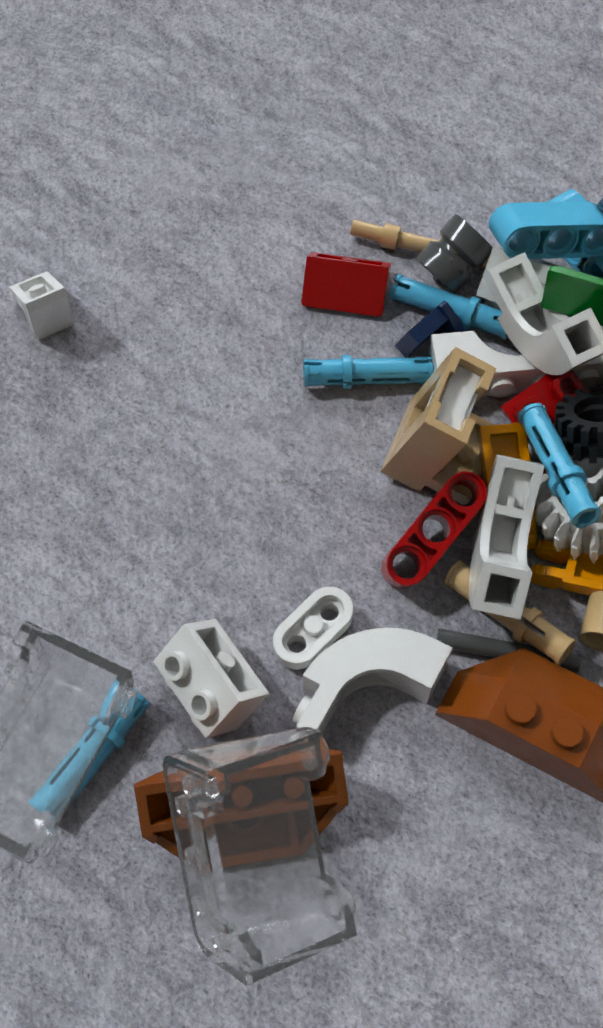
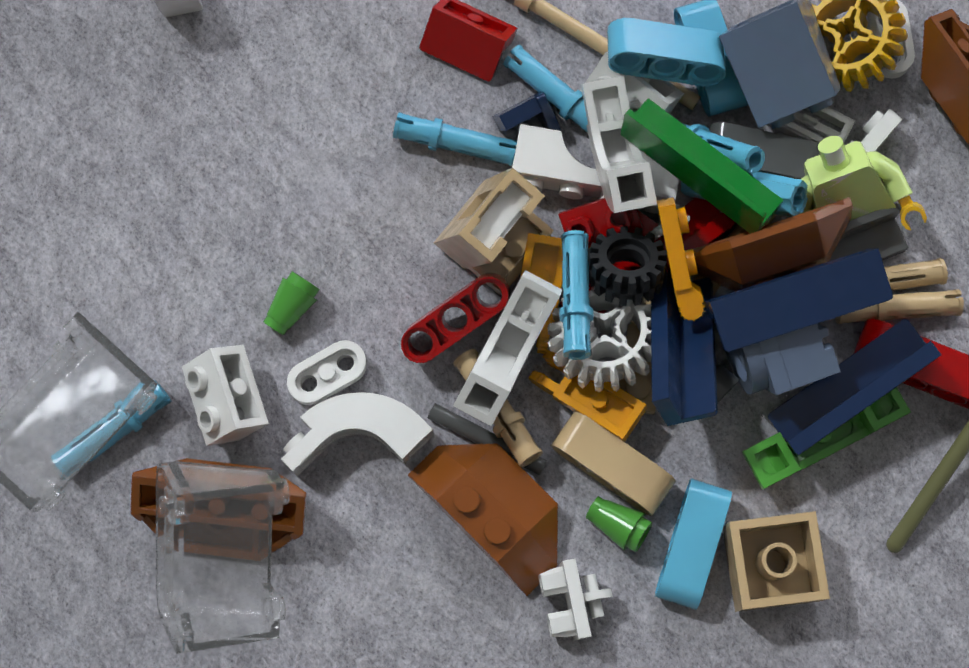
camera: 15 degrees right, 15 degrees up
(250, 567) = (290, 302): none -> bright green cone
(455, 253) = (569, 45): dark grey wheel -> none

